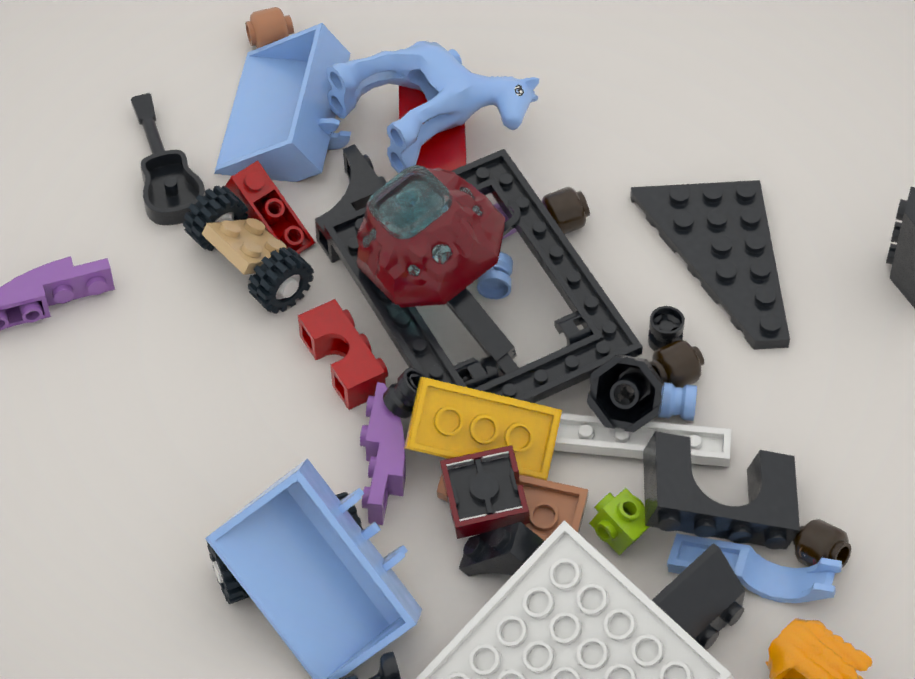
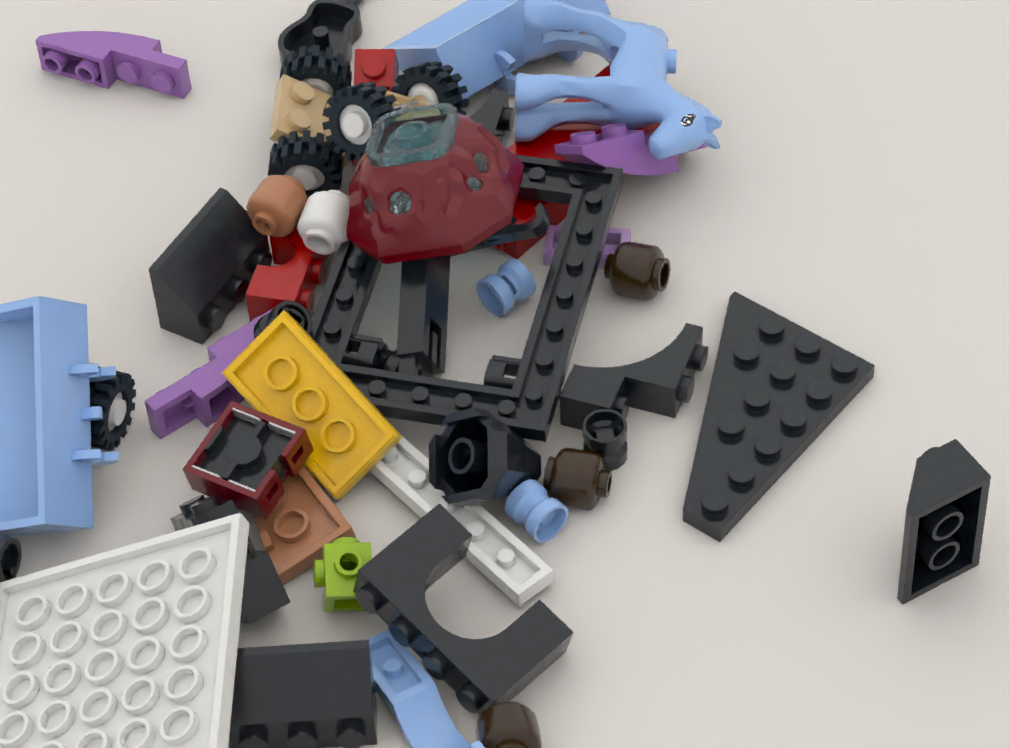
camera: 45 degrees right, 5 degrees down
(302, 390) = (207, 268): none -> black slope
(309, 314) = (277, 205): none -> nougat head
(317, 201) = (361, 105): none -> black plate
(355, 304) = (324, 221): none -> white head
(480, 136) = (617, 149): none -> medium lavender slope
(655, 278) = (651, 385): none -> black arch

